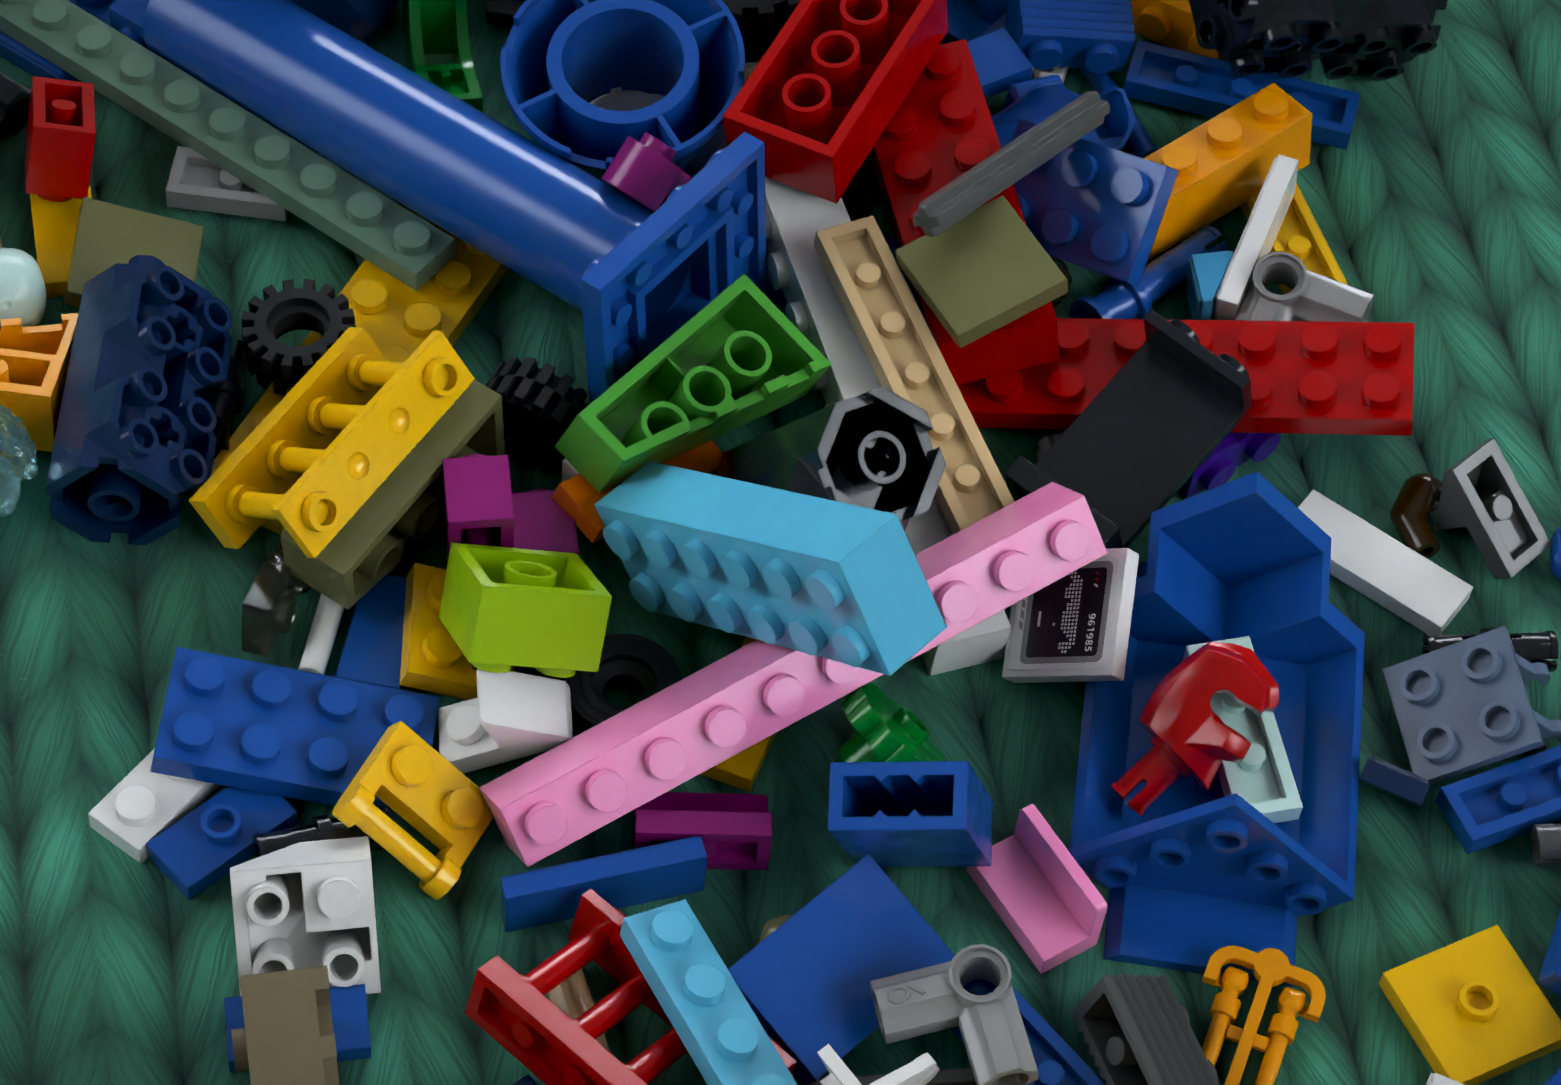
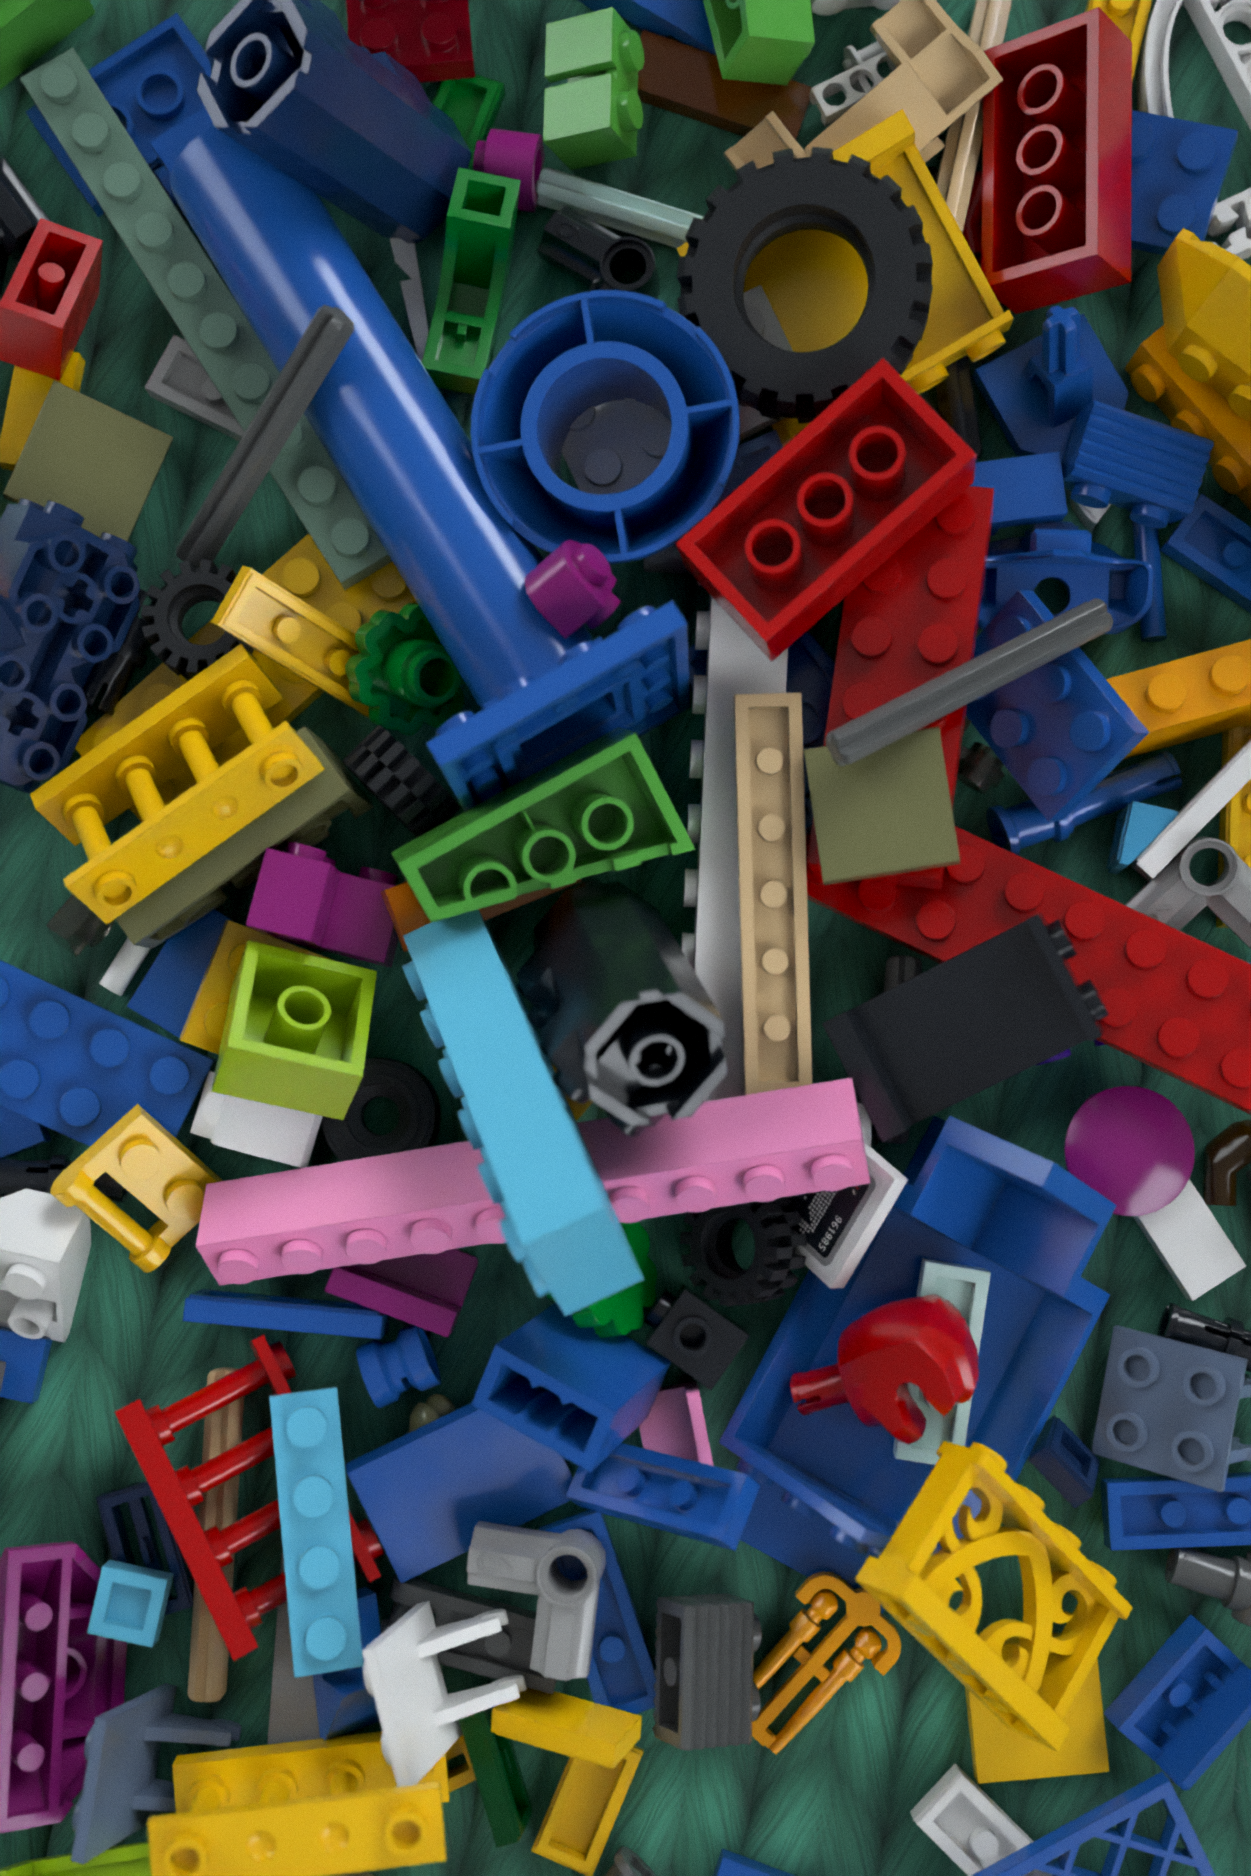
camera: 25 degrees right, 30 degrees up
(312, 165) = (266, 434): none -> dark grey axle
(395, 316) = (289, 633): none -> yellow tile
(501, 320) = (404, 672): none -> green plant
(731, 894) = (397, 1365): none -> blue wheel
(984, 674) = (772, 1258): none -> black tyre
(1012, 775) = (694, 1334): none -> black brick
(1038, 886) = (668, 1494): none -> blue plate
(1306, 838) = (1030, 1688): none -> yellow fence
(1342, 510) = (1131, 1148): none -> magenta dish

